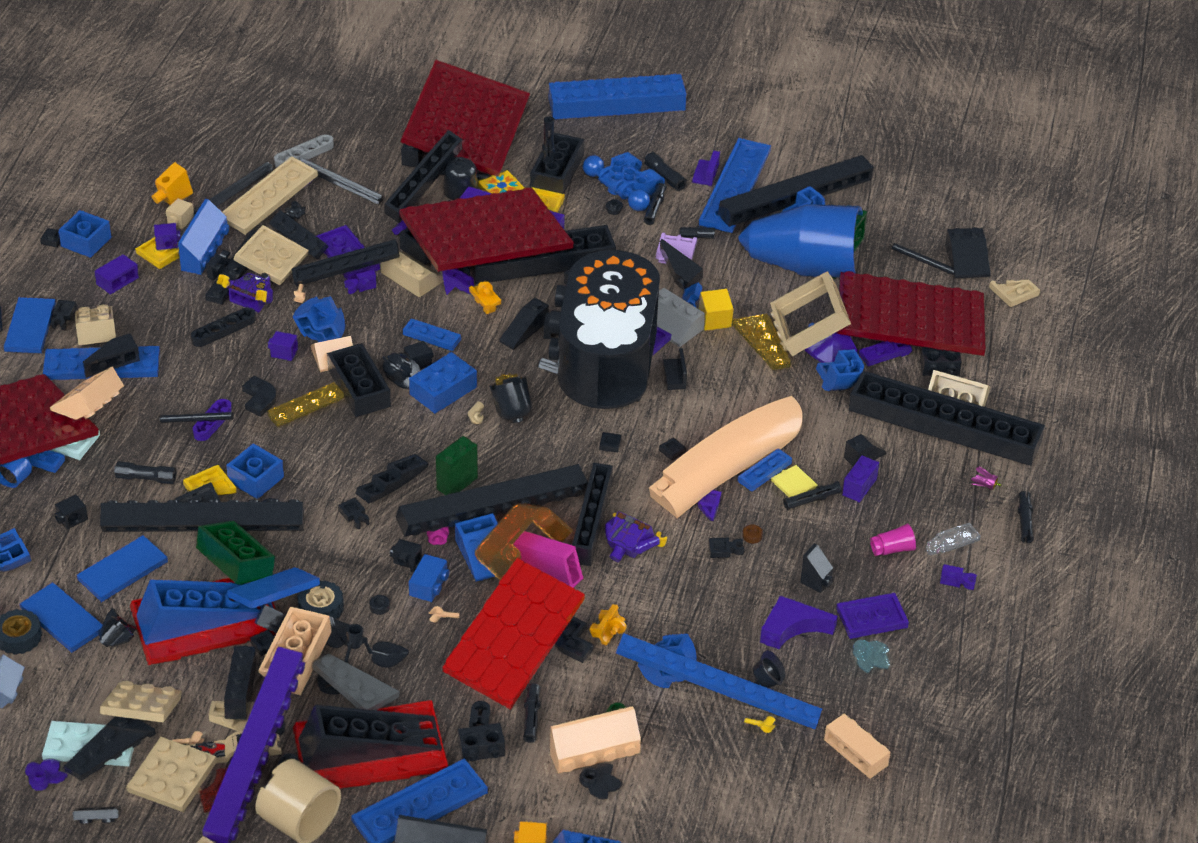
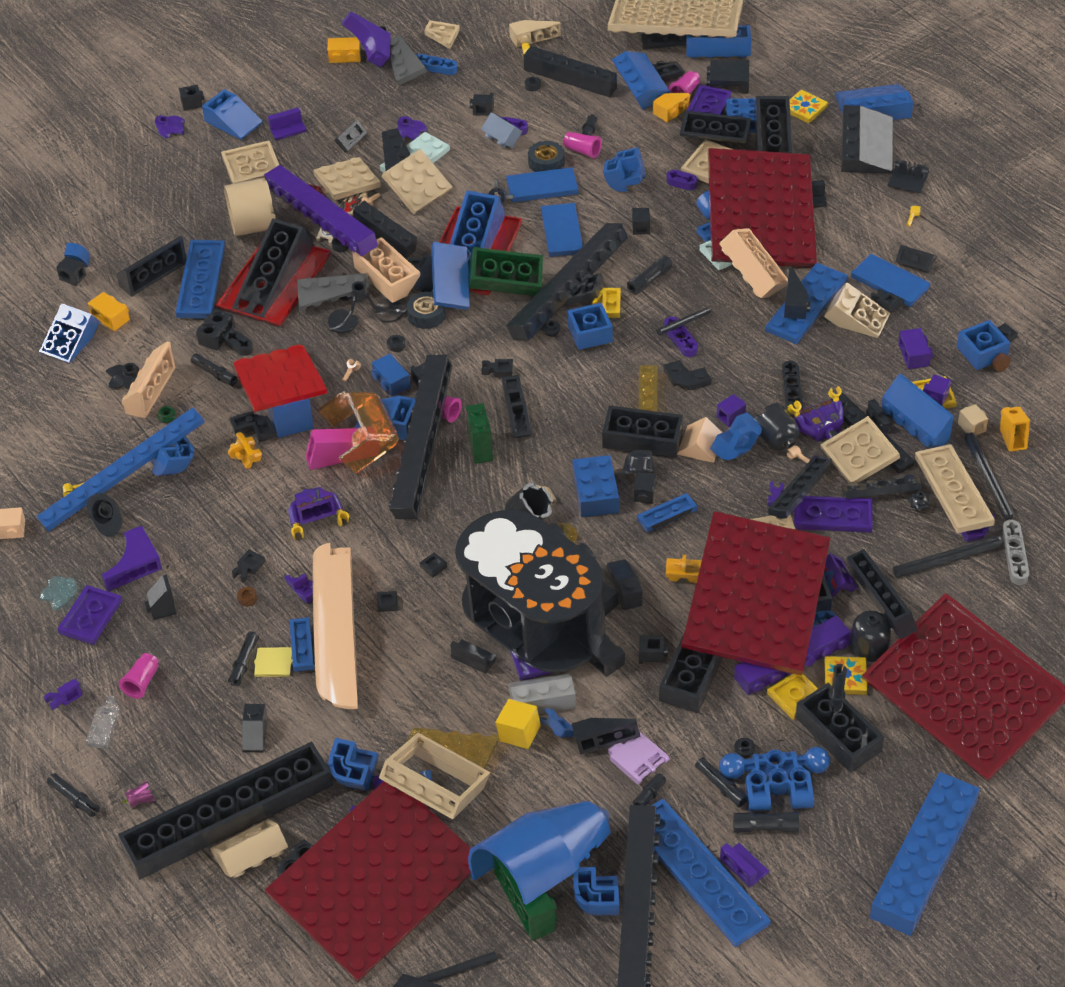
camera: 130 degrees right, 5 degrees up
(283, 304) = (778, 427): none -> black cylinder
(592, 512) = (357, 496): black brick -> none
(860, 478) = (224, 699): dark purple brick -> none

